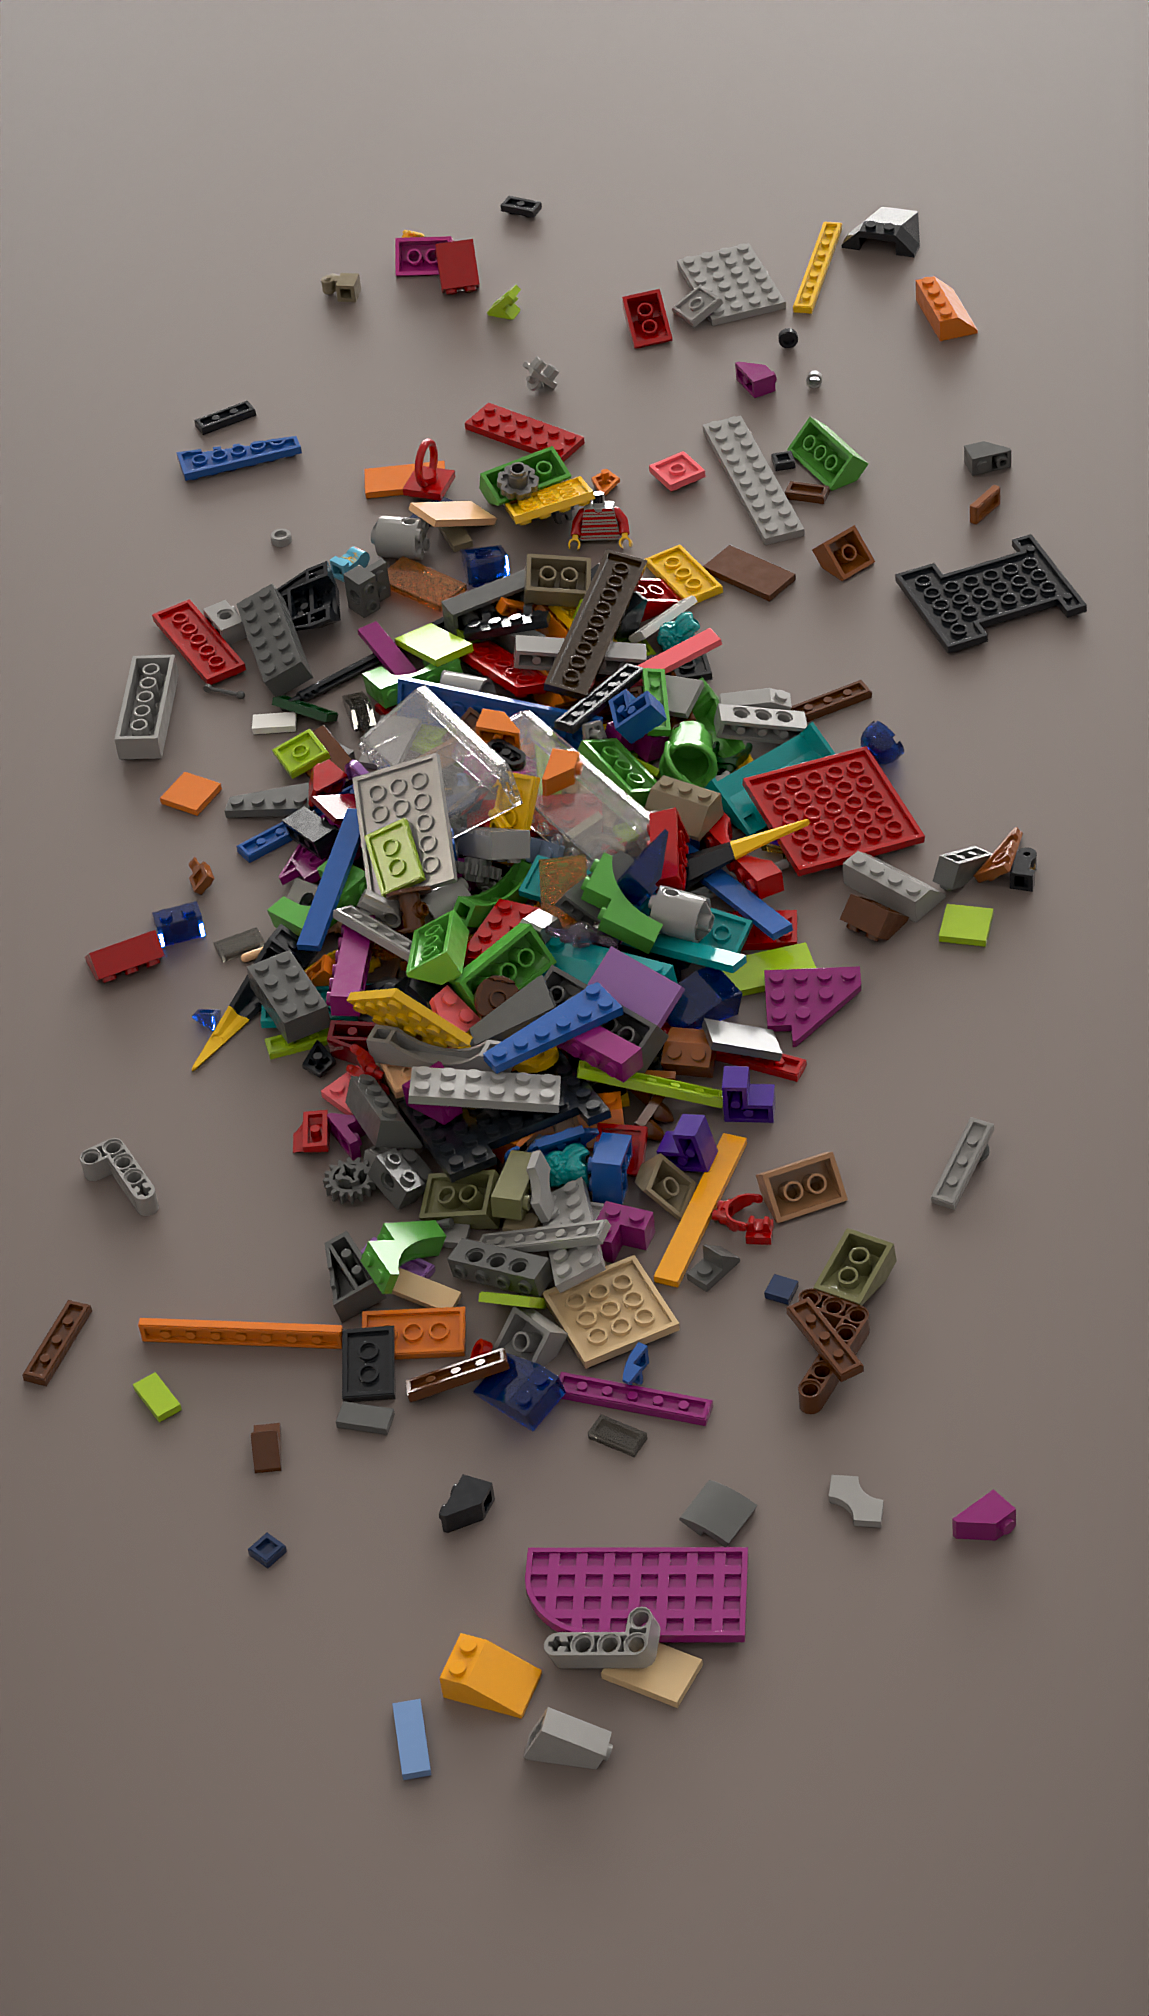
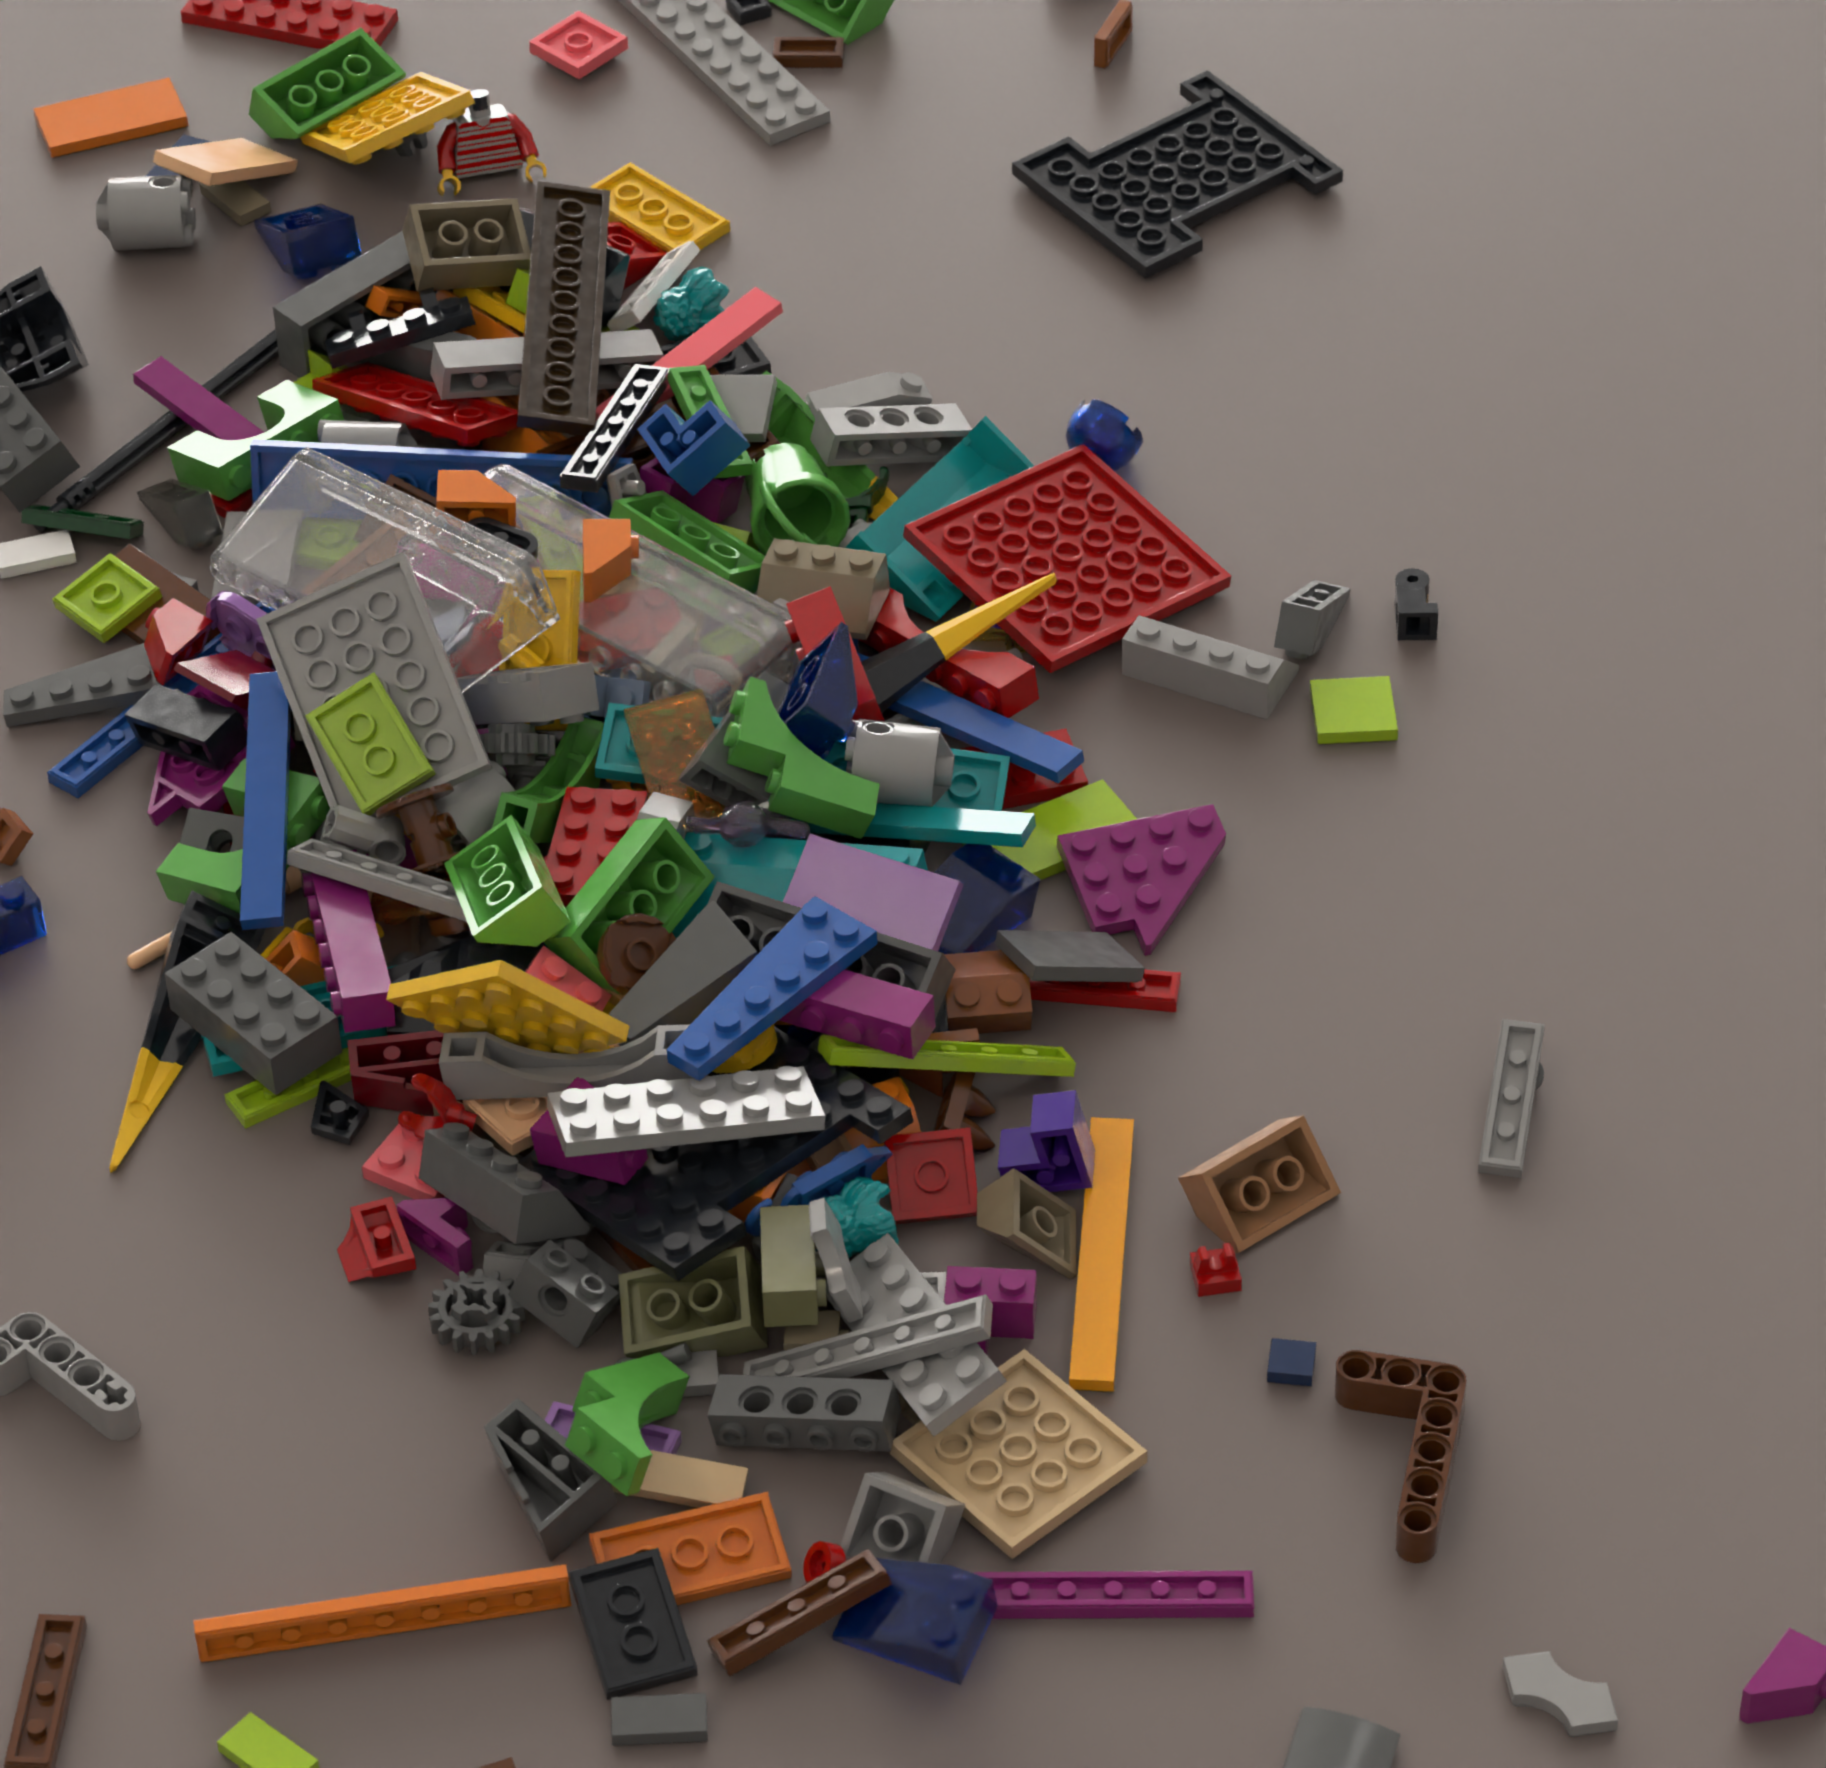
camera: 20 degrees left, 0 degrees up
(207, 1017) = (107, 1074): clear blue slope -> none
(239, 944) = (116, 940): clear smoke tile -> none
(348, 561) = (71, 267): medium azure leg -> none
(367, 587) = (120, 303): dark grey brick -> none
(423, 583) = (208, 285): clear orange tile -> none
(428, 481) = (154, 112): red tile -> none
(434, 644) = (280, 381): tile -> none
(513, 1300) = (855, 1464): lime tile -> none
(517, 481) = (323, 93): flat silver plant -> none
(605, 481) = (462, 73): orange piece -> none
(610, 1168) = (932, 1207): blue brick -> none
(617, 1435) = (1112, 1663): clear smoke tile -> none
(636, 1364) = (1102, 1545): blue slope -> none
(712, 1267) = (1160, 1347): dark grey slope -> none
(728, 1208) = (1149, 1241): red helmet -> none
(744, 1100) = (1110, 1055): dark purple brick -> none
(749, 573) = (765, 193): reddish brown tile -> none
(825, 1339) = (1412, 1431): reddish brown tile -> none
(834, 700) = (991, 377): reddish brown tile -> none
(844, 554) = (913, 142): dark orange slope -> none
(857, 1267) = (1412, 1299): olive slope -> none
(872, 917) = (1199, 722): reddish brown slope -> none
(1001, 859) = (1371, 594): dark orange wing -> none

